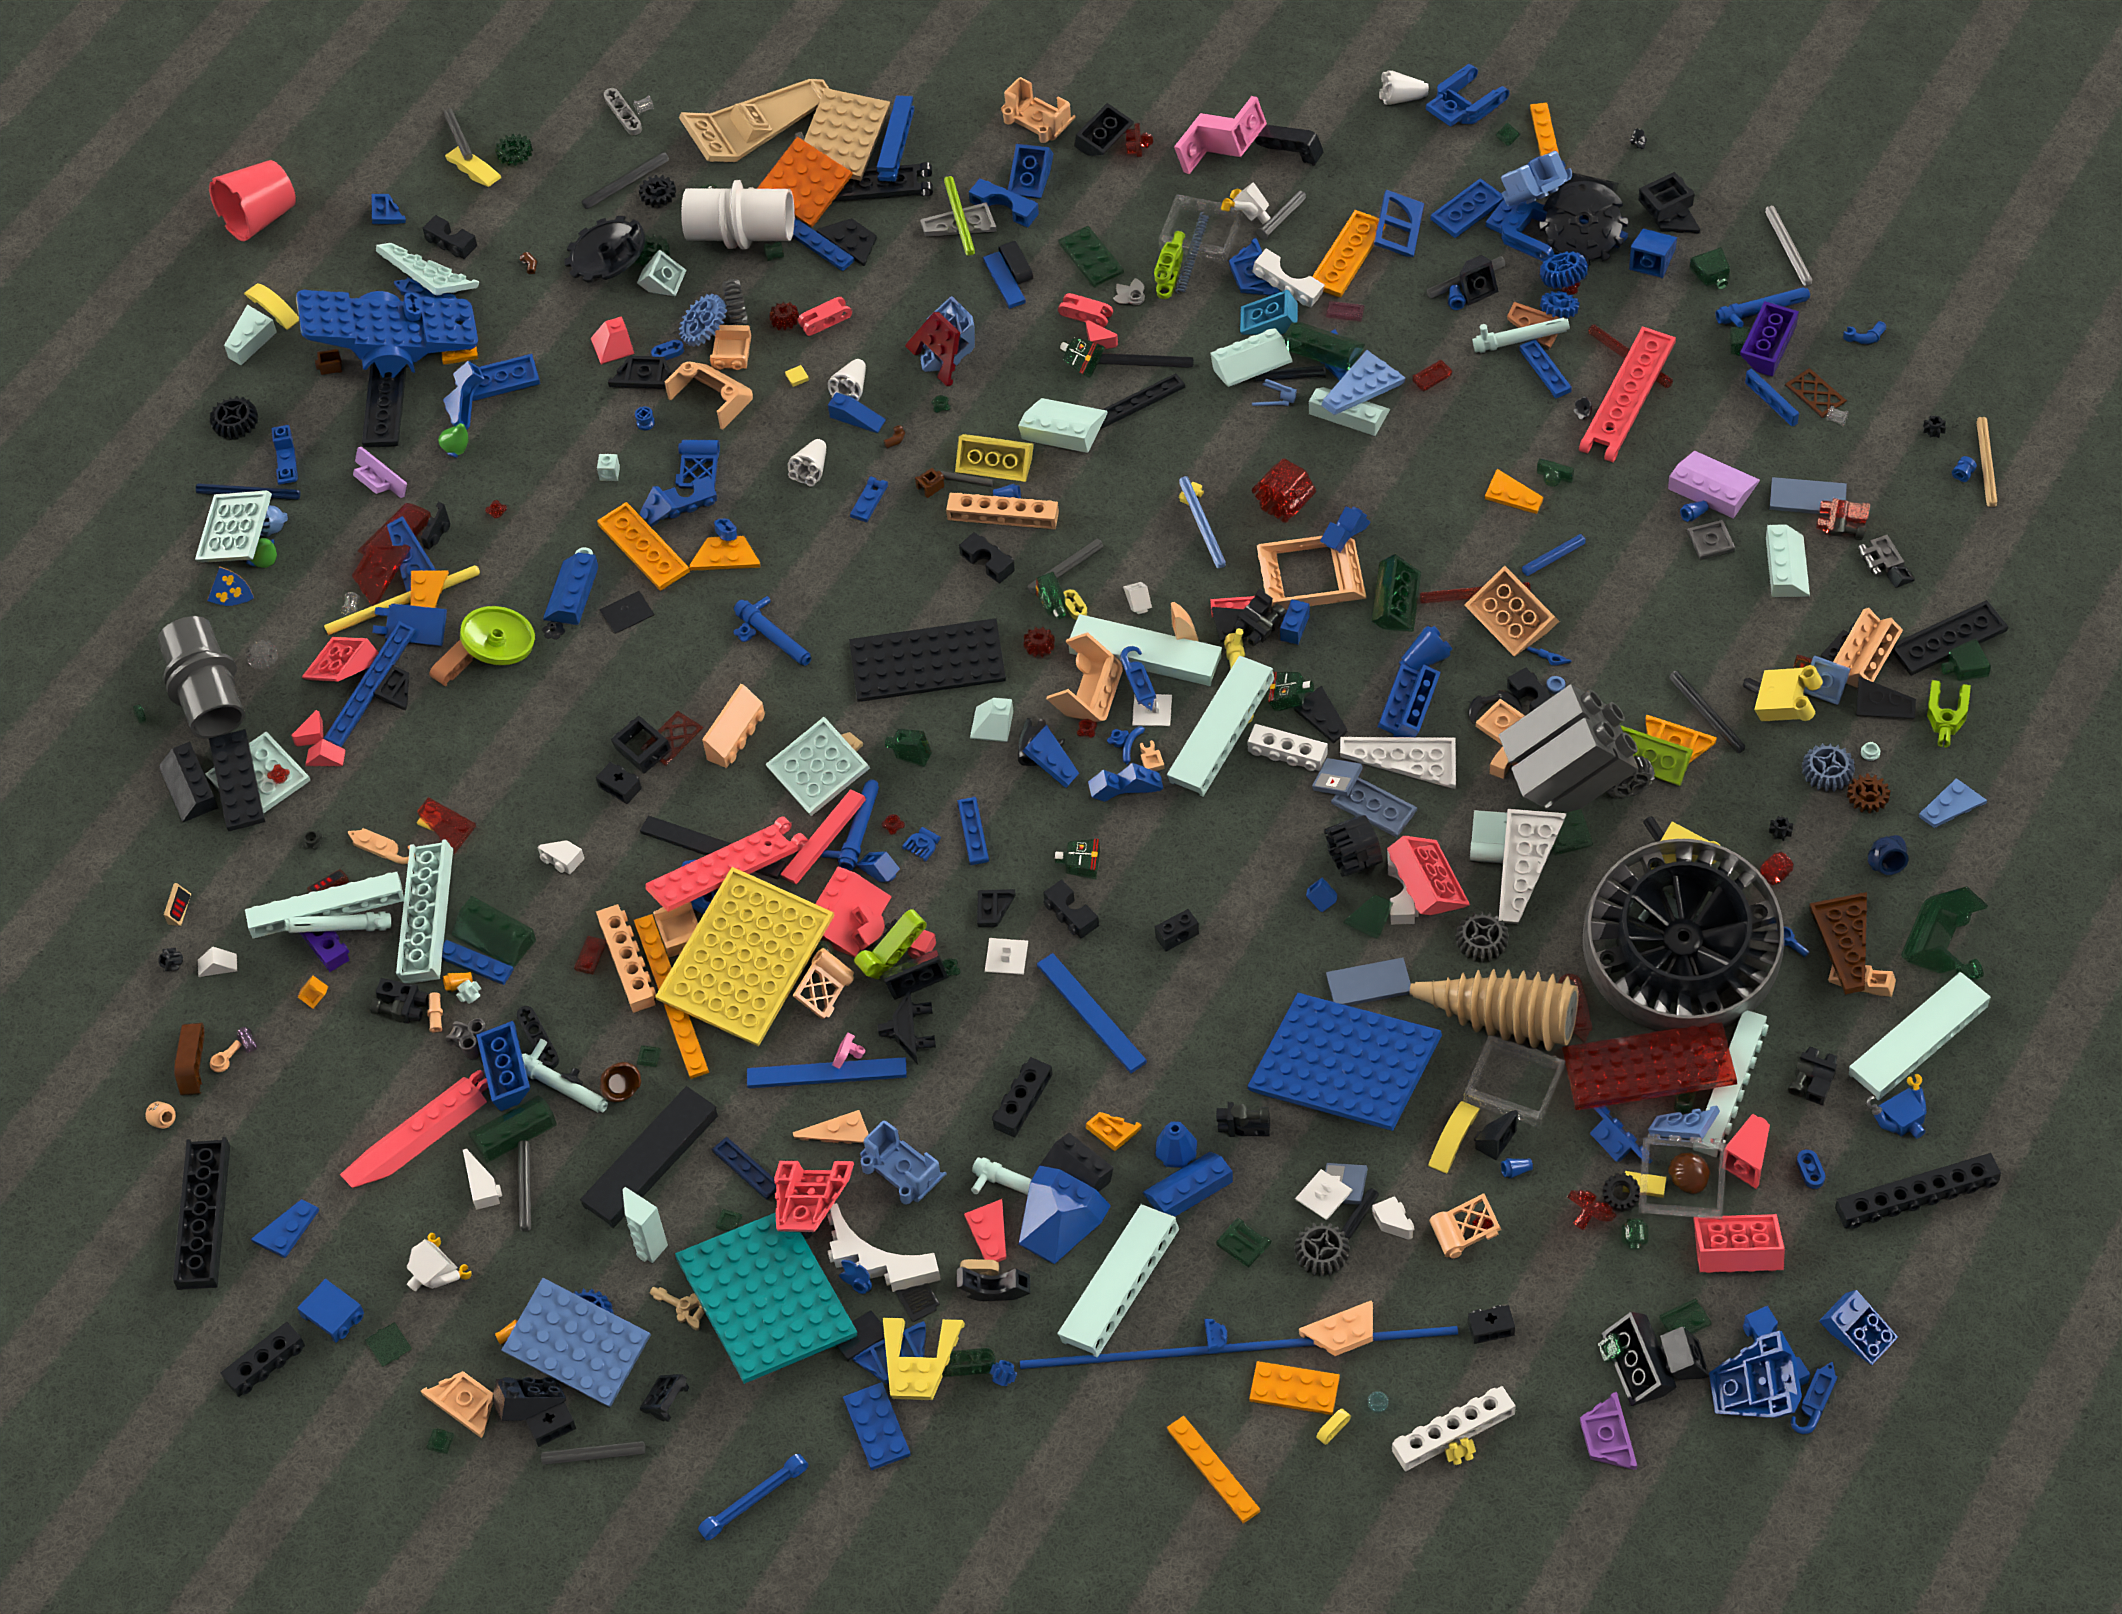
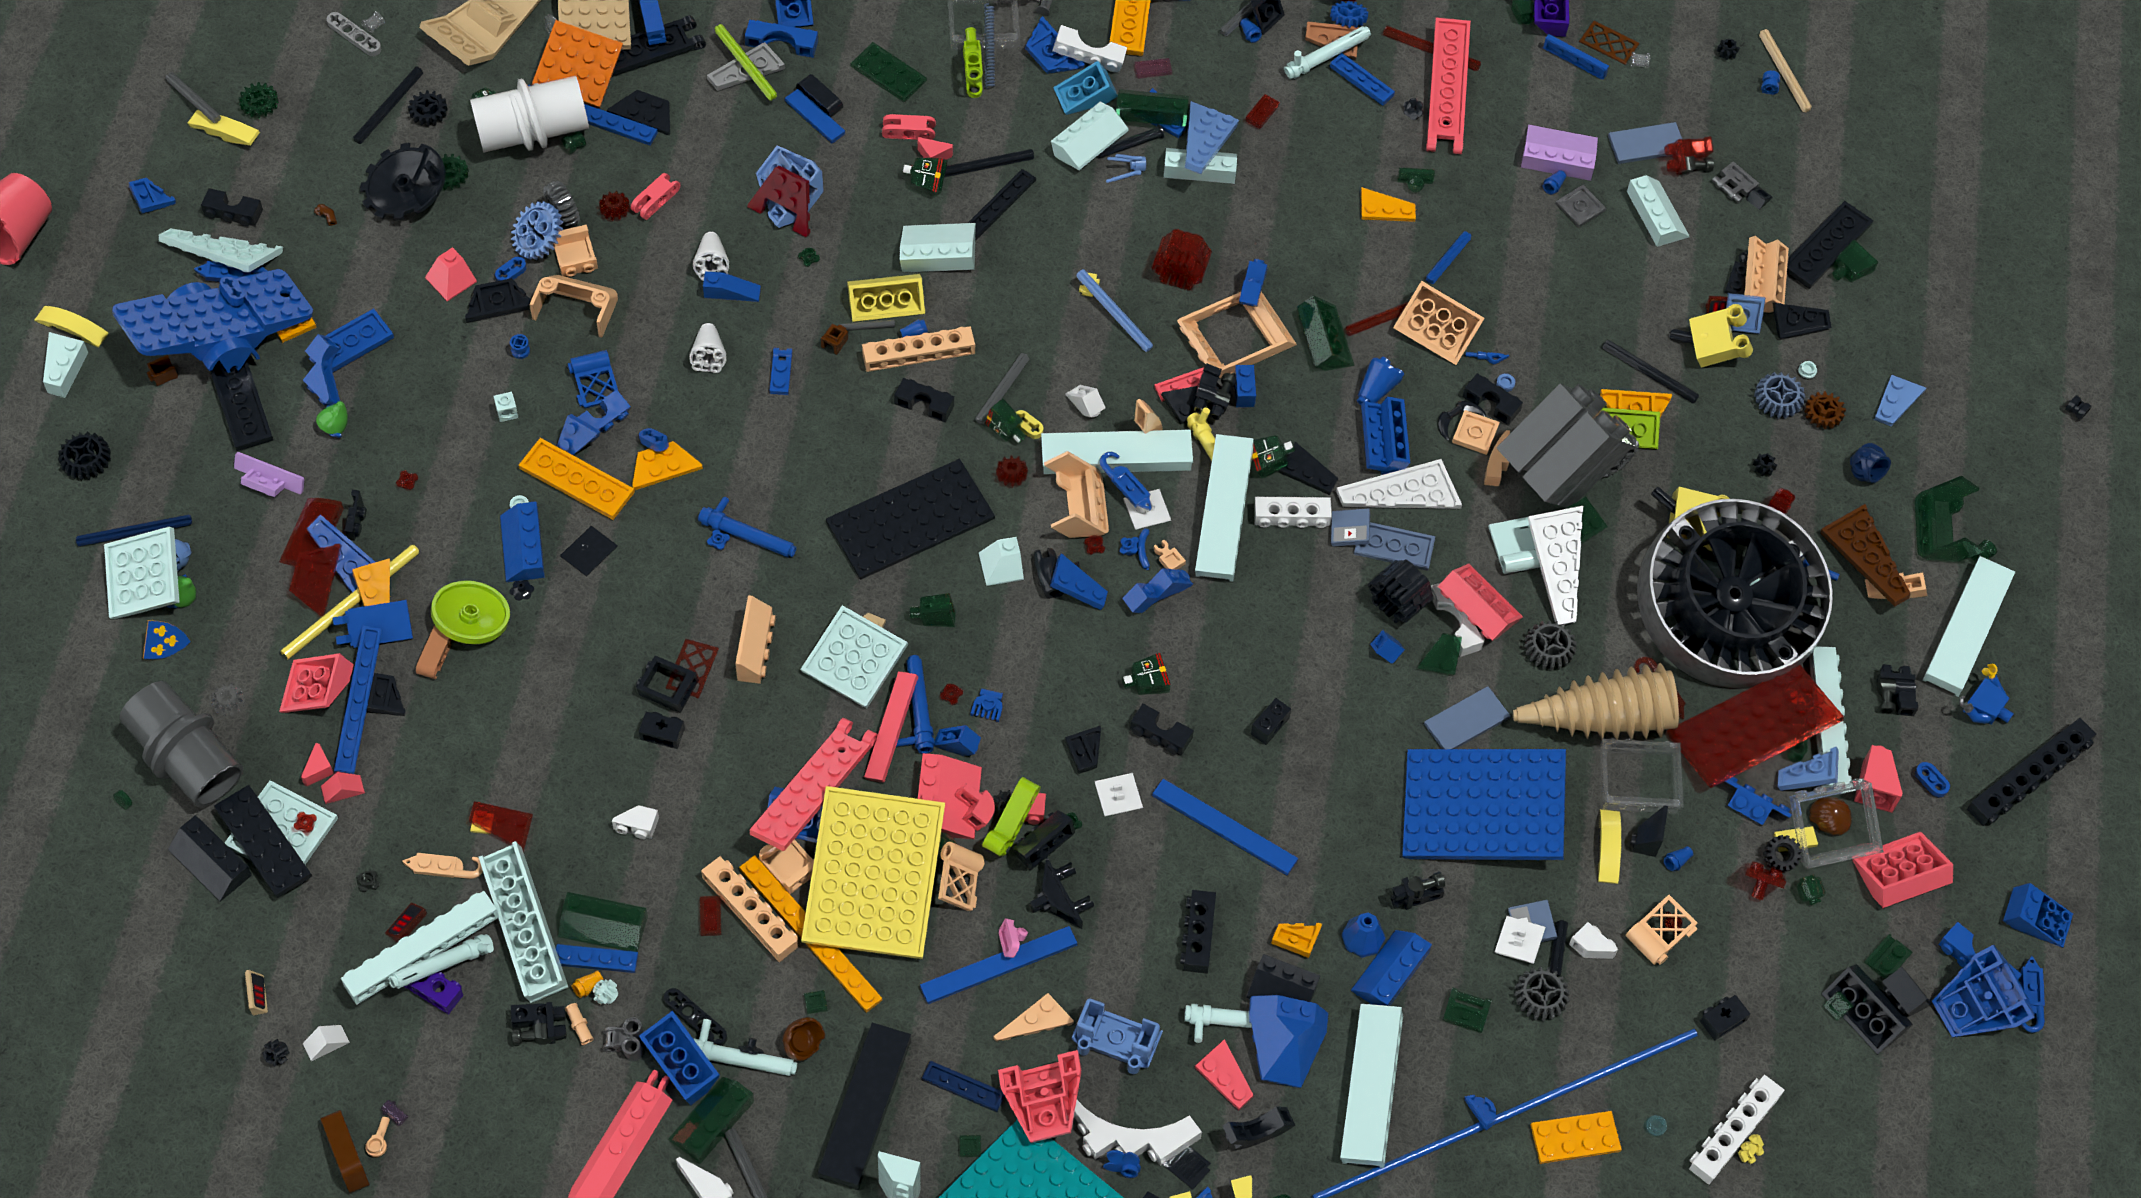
camera: 30 degrees left, 5 degrees up
(285, 455) = (158, 482): blue slope -> none
(313, 991) = (442, 1041): light orange panel -> none
(350, 604) = (298, 620): clear bush -> none
(662, 275) = (471, 194): light aqua slope -> none
(697, 842) = (764, 767): black tile -> none
(796, 376) = (653, 263): light yellow tile -> none
(897, 437) = (781, 301): reddish brown arm -> none
(973, 831) = (1031, 678): blue tile -> none
(983, 1267) = (1234, 1115): tan beam -> none
(1127, 294) = (940, 101): light grey plate -> none
(1333, 1426) = (1629, 1163): light yellow beam -> none
(1343, 1330) = (1596, 1066): light nougat wing -> none
(1608, 1435) = (1872, 1089): medium lavender wing -> none
(1947, 721) = (1860, 323): lime piece -> none

